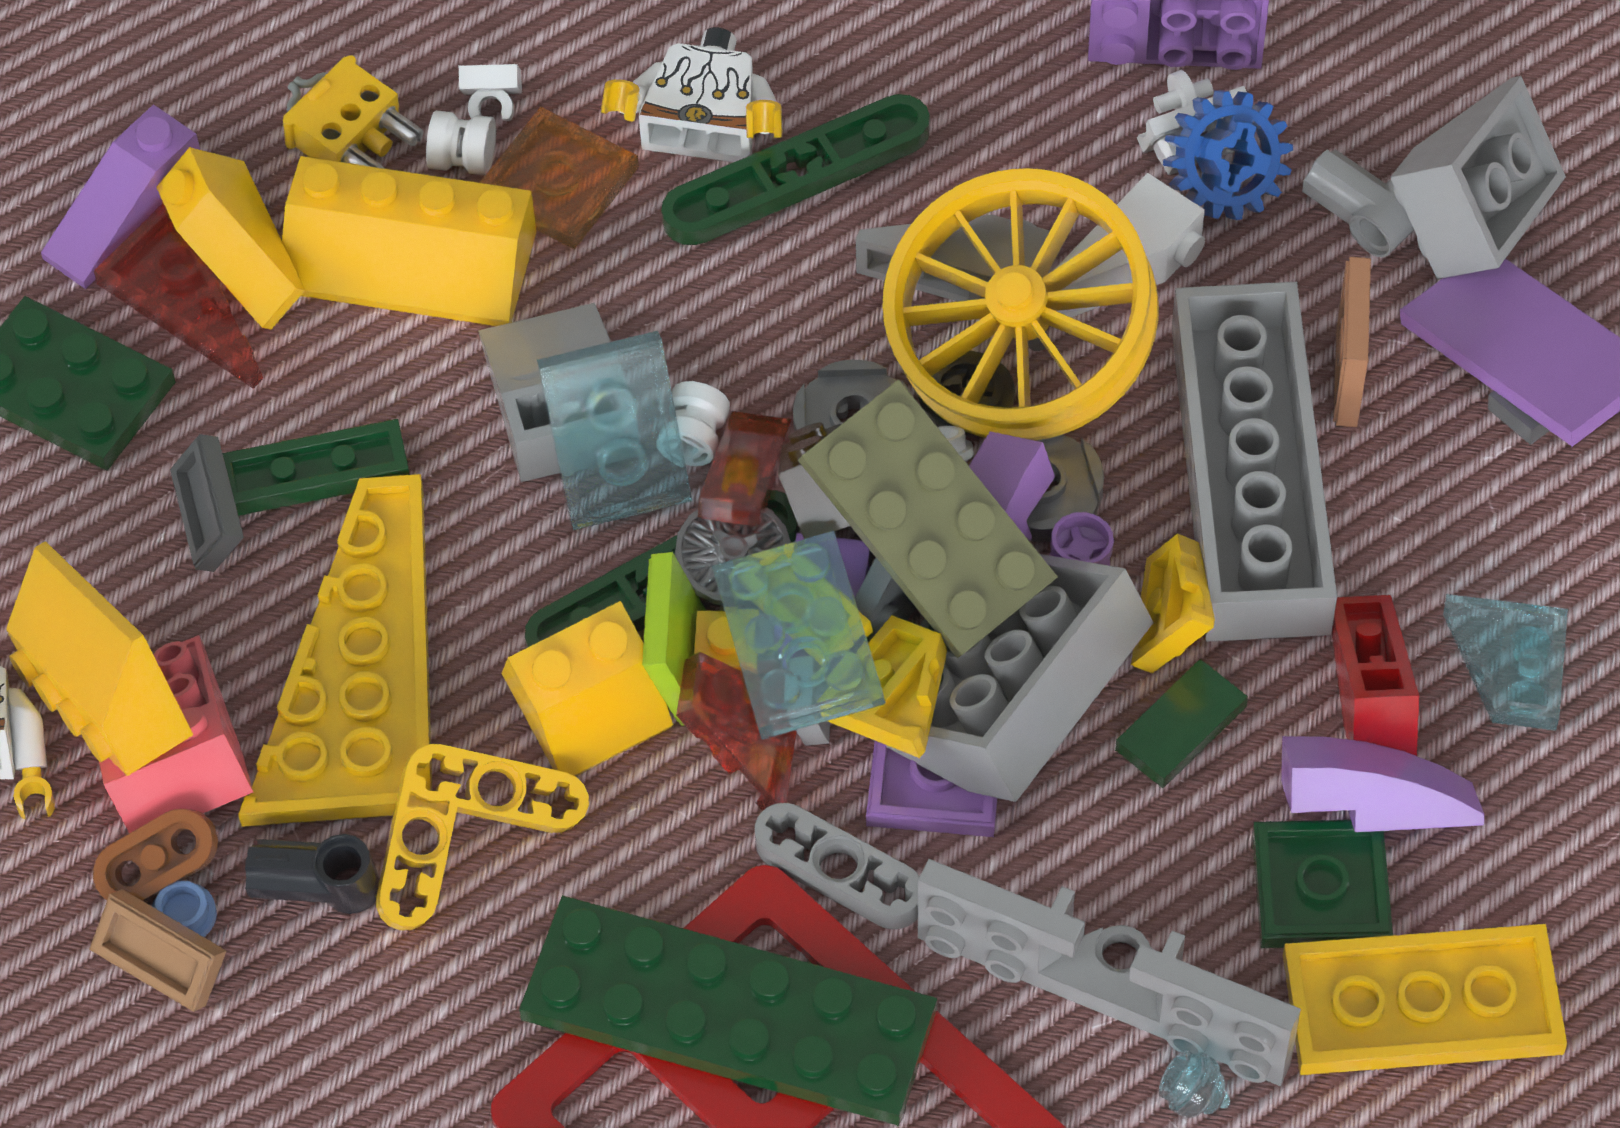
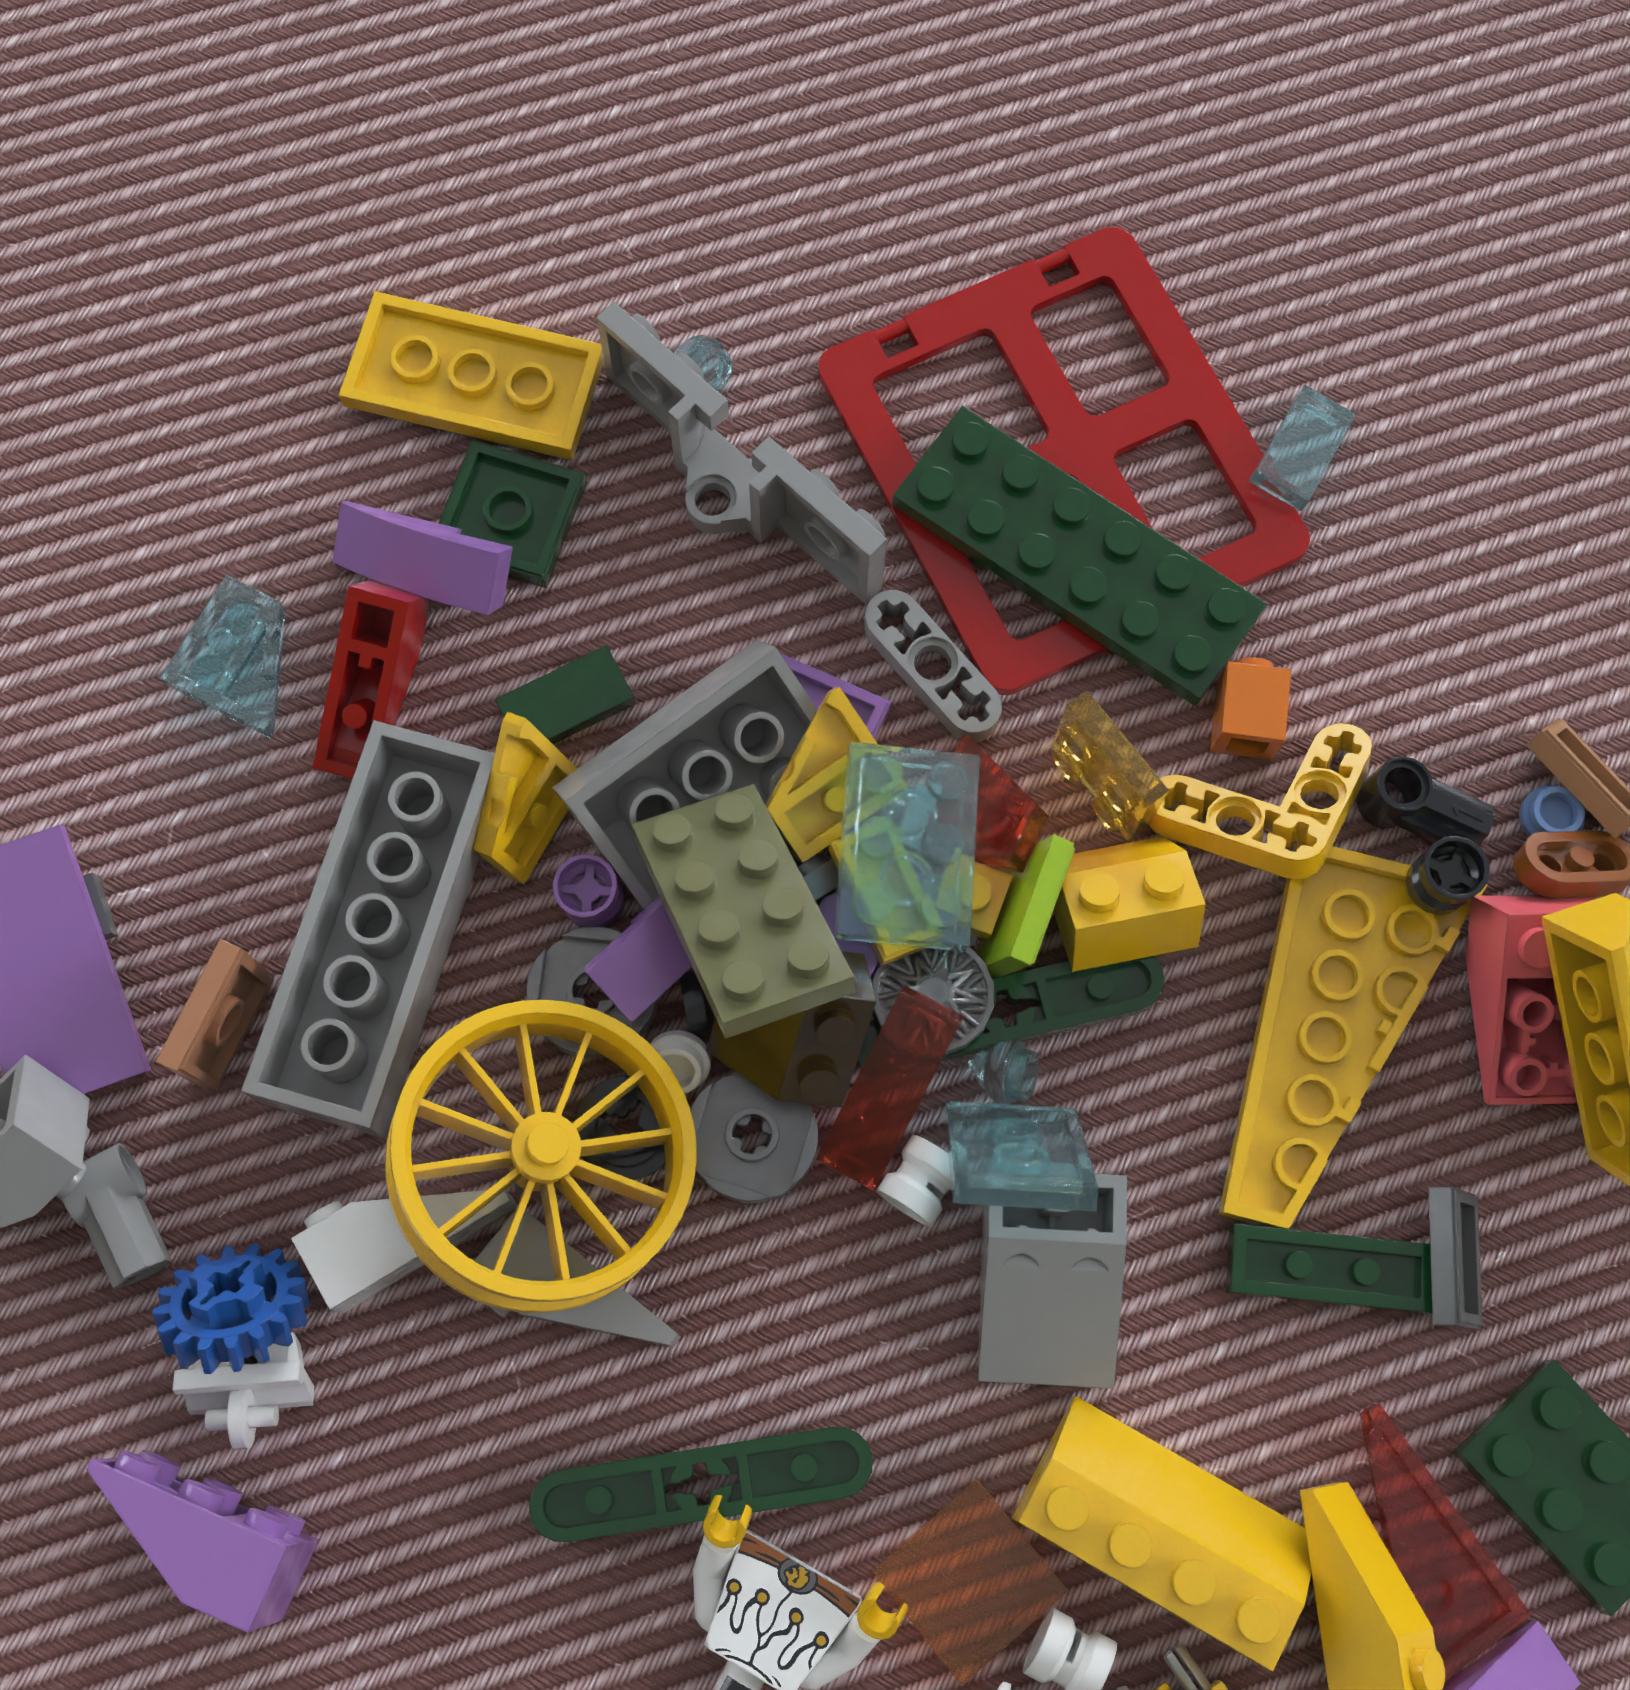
camera: 165 degrees left, 15 degrees up
(274, 772) = (1456, 864): none -> black wheel
(508, 909) = (1250, 709): none -> orange brick
(634, 786) = (1108, 767): none -> clear yellow plate
(644, 528) = (1006, 1071): none -> clear light blue plate

